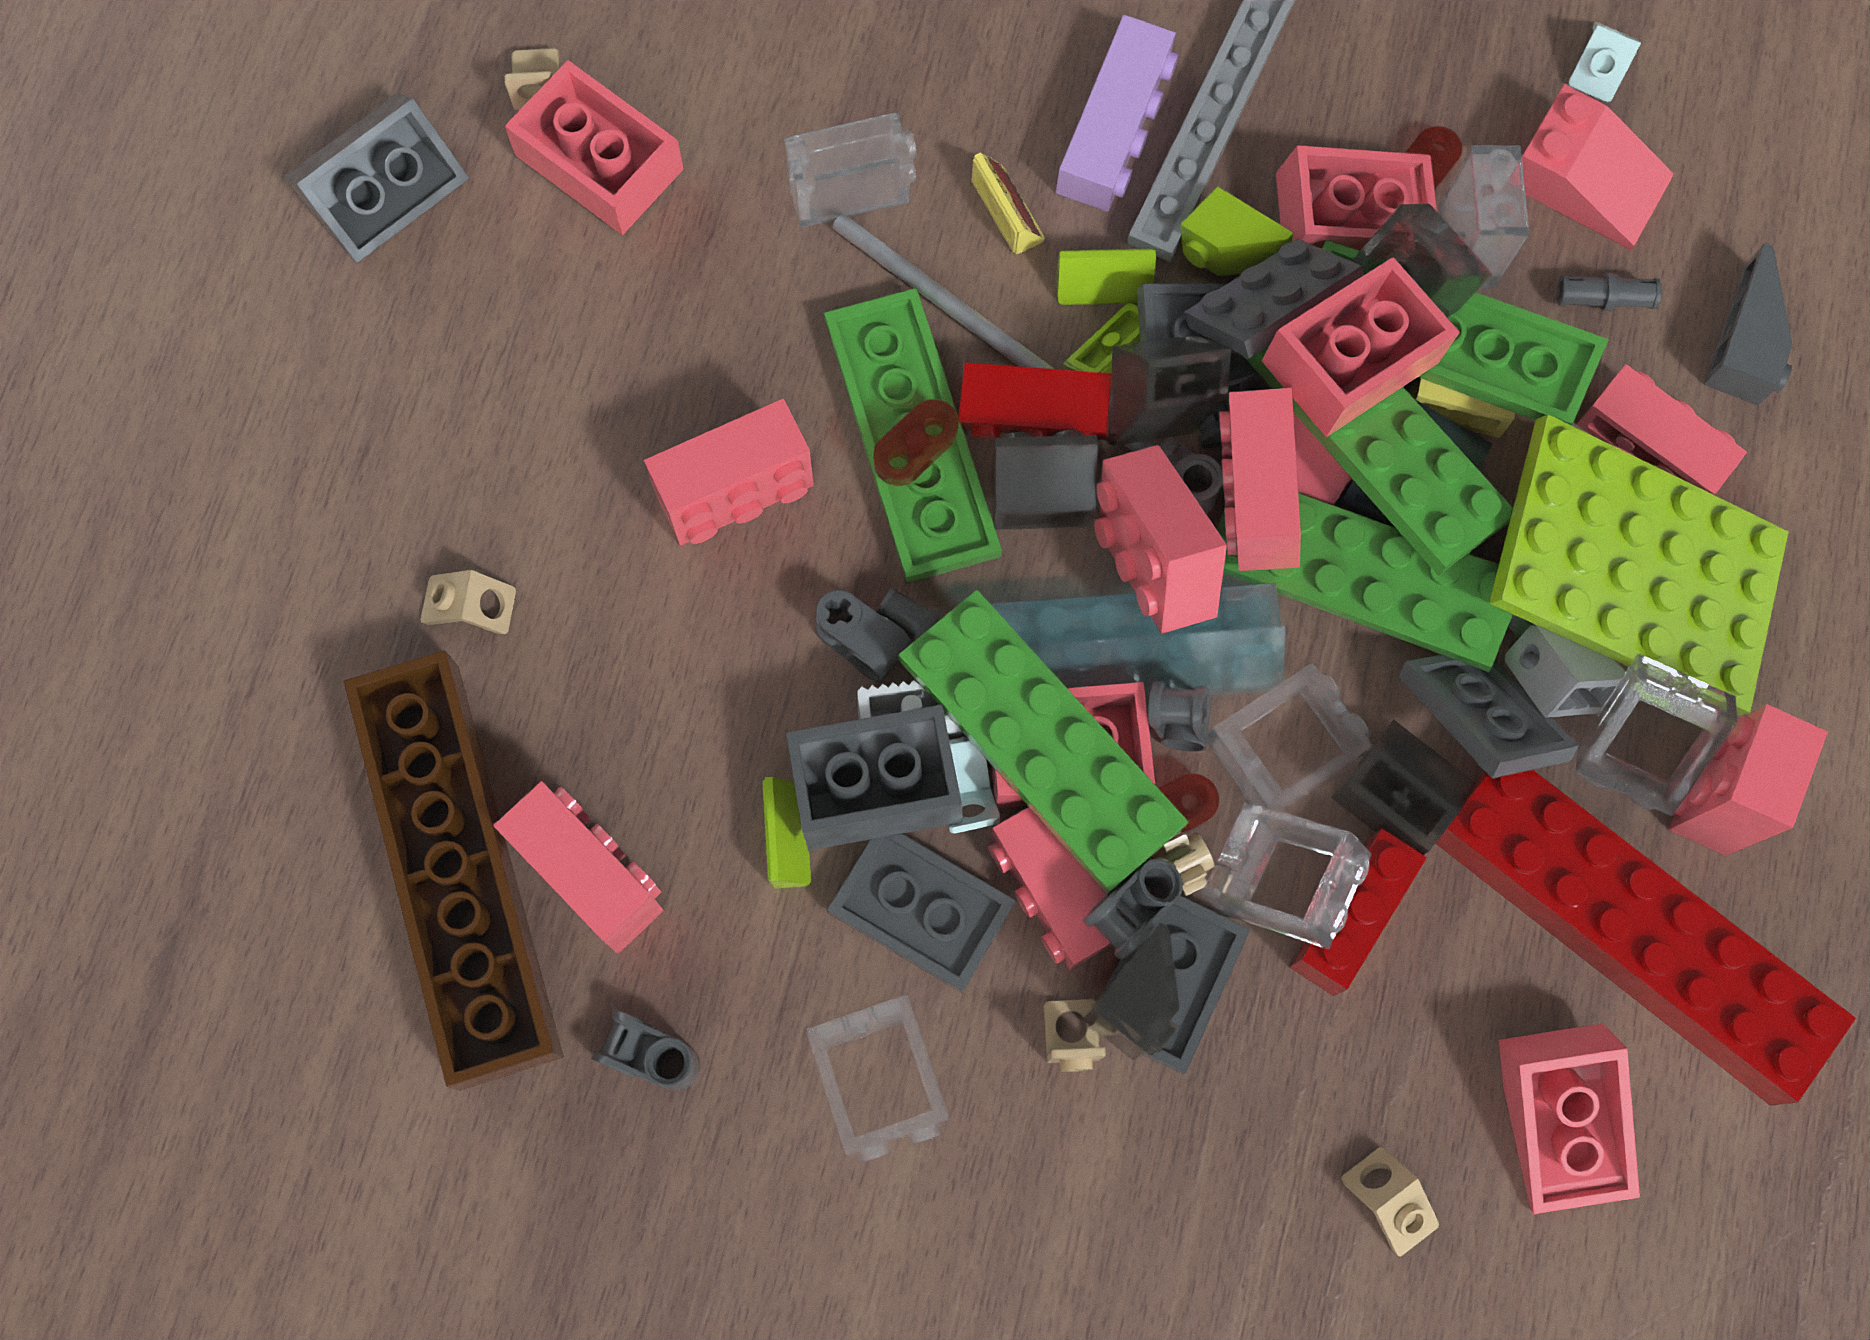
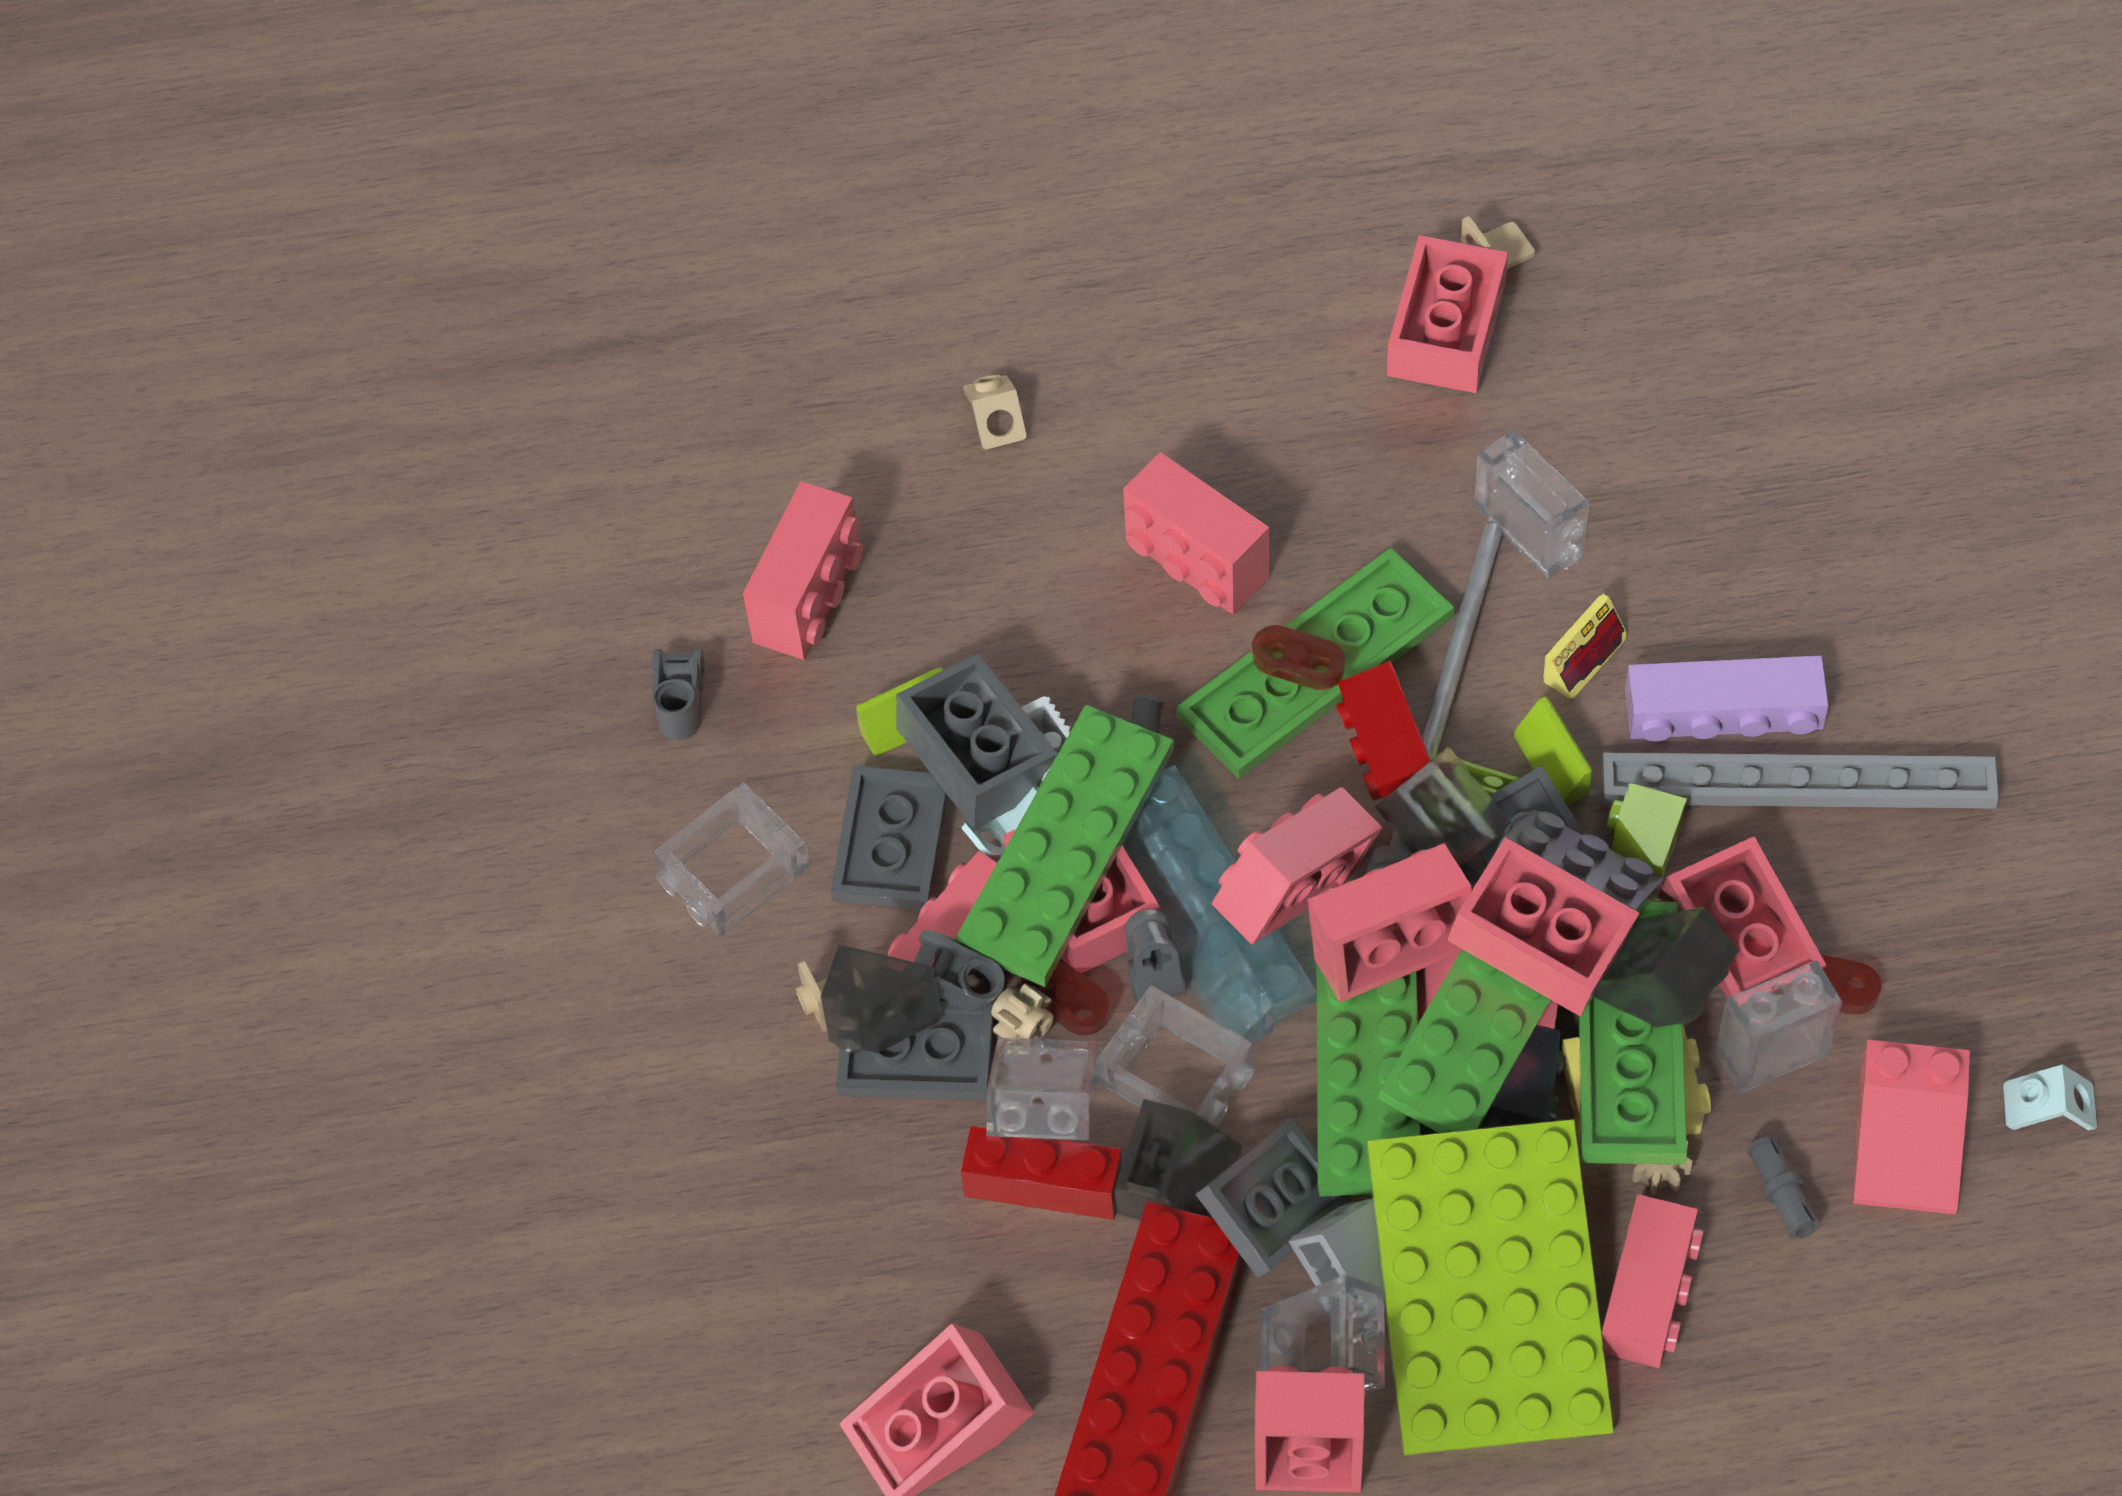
camera: 75 degrees right, 15 degrees down
(377, 176) = (1335, 178): dark grey slope -> none
(452, 872) = (732, 504): reddish brown brick -> none
(865, 639) = (1106, 690): dark grey piece -> none
(1044, 480) = (1312, 758): clear smoke slope -> none
(1398, 1205) = (795, 1300): tan bracket -> none
(1755, 335) = (1800, 1332): dark grey slope -> none

